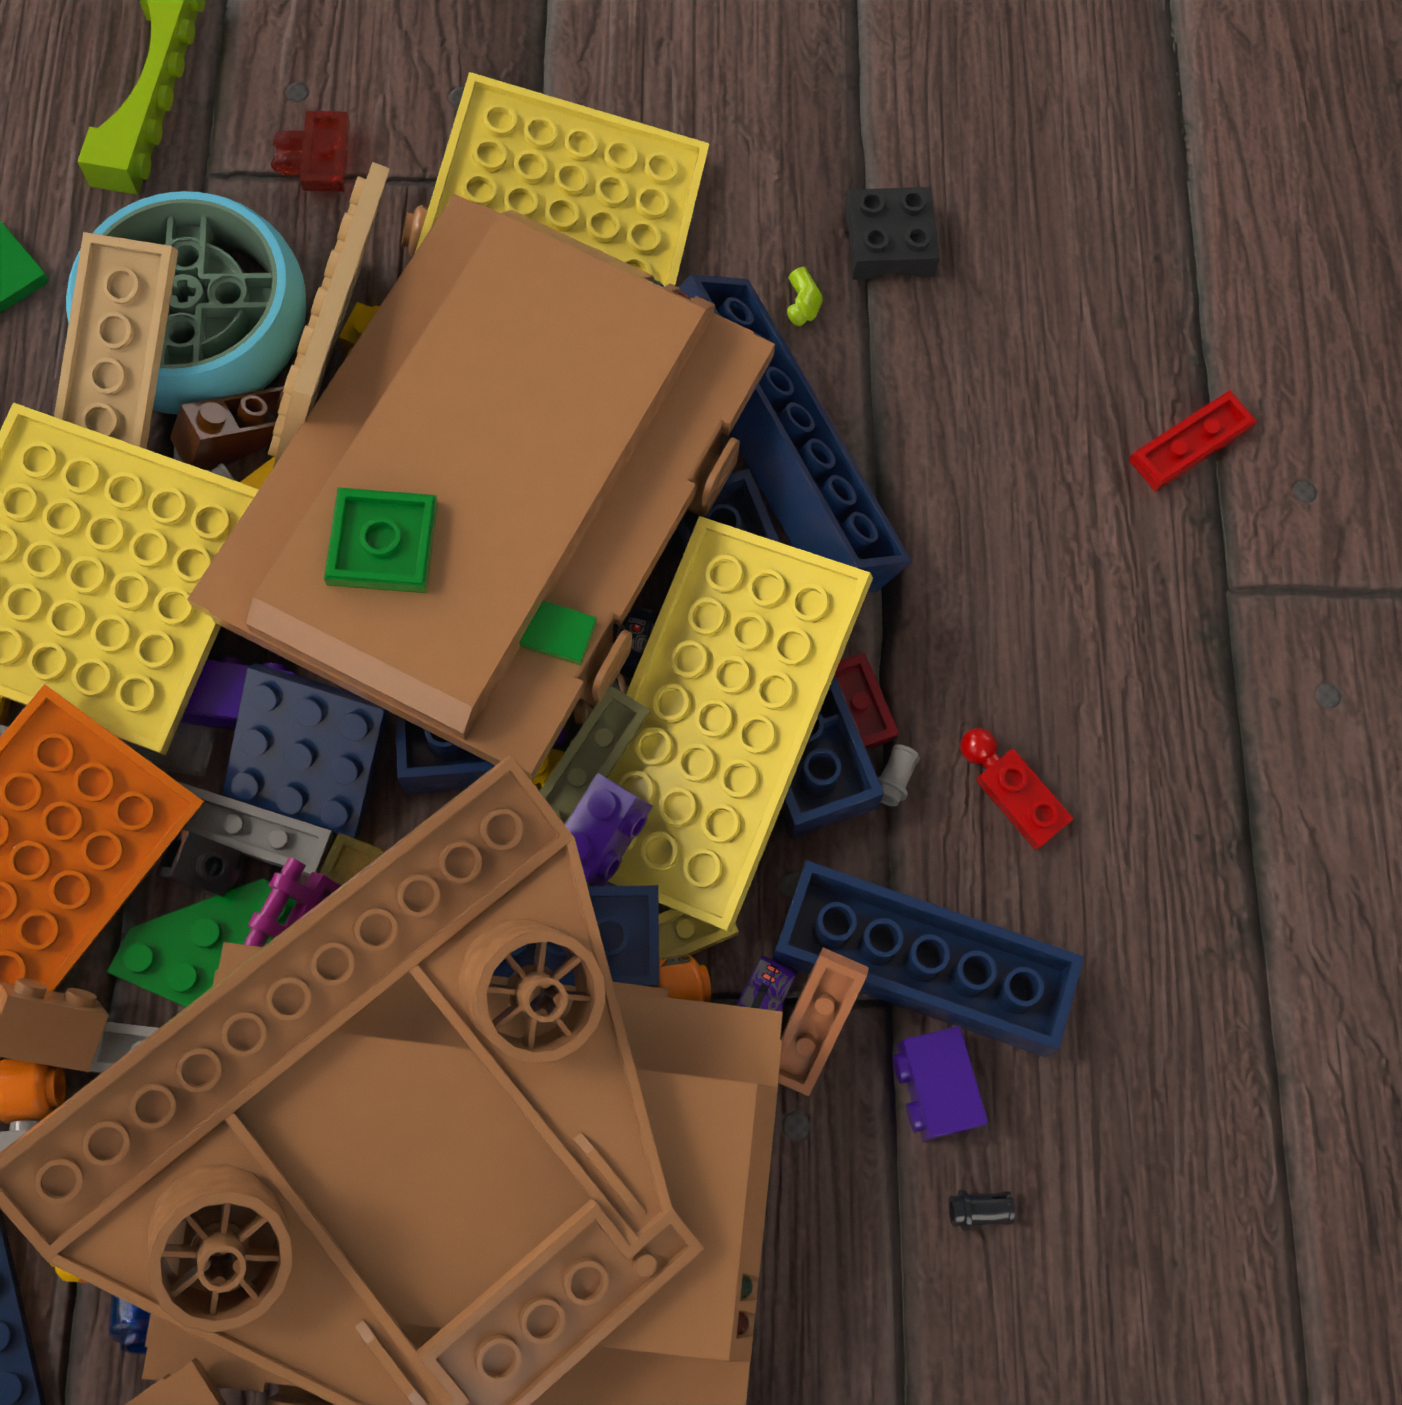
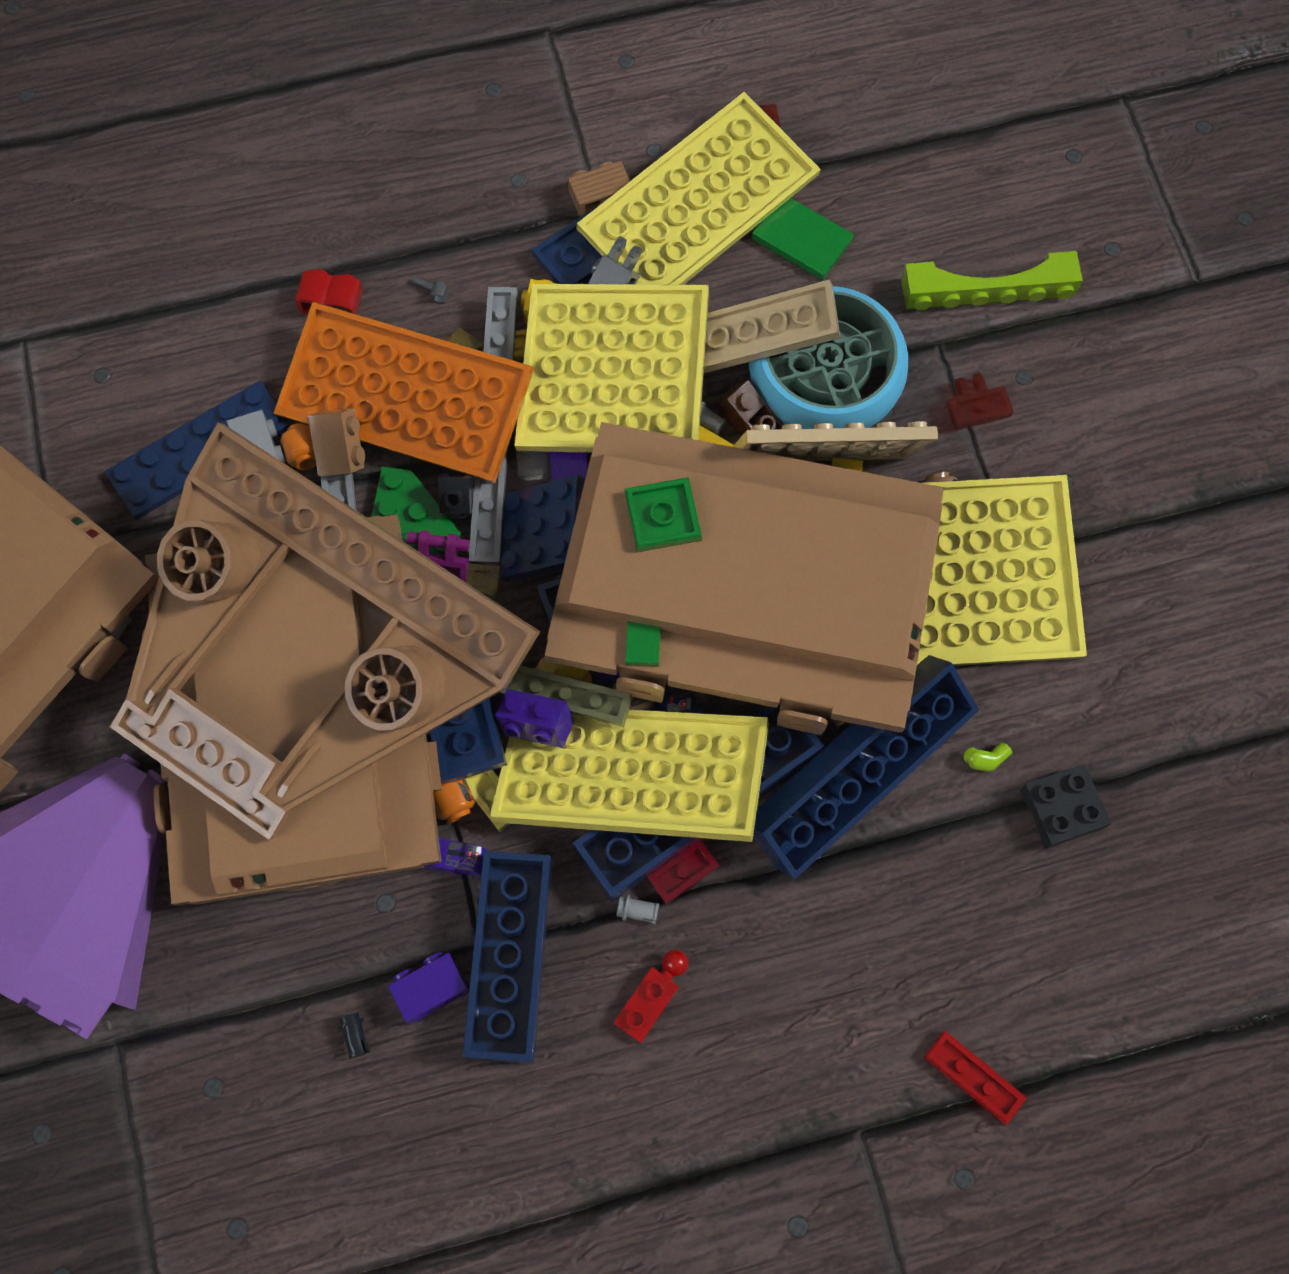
camera: 80 degrees right, 0 degrees up
(818, 1019) = (446, 891): nougat plate -> none

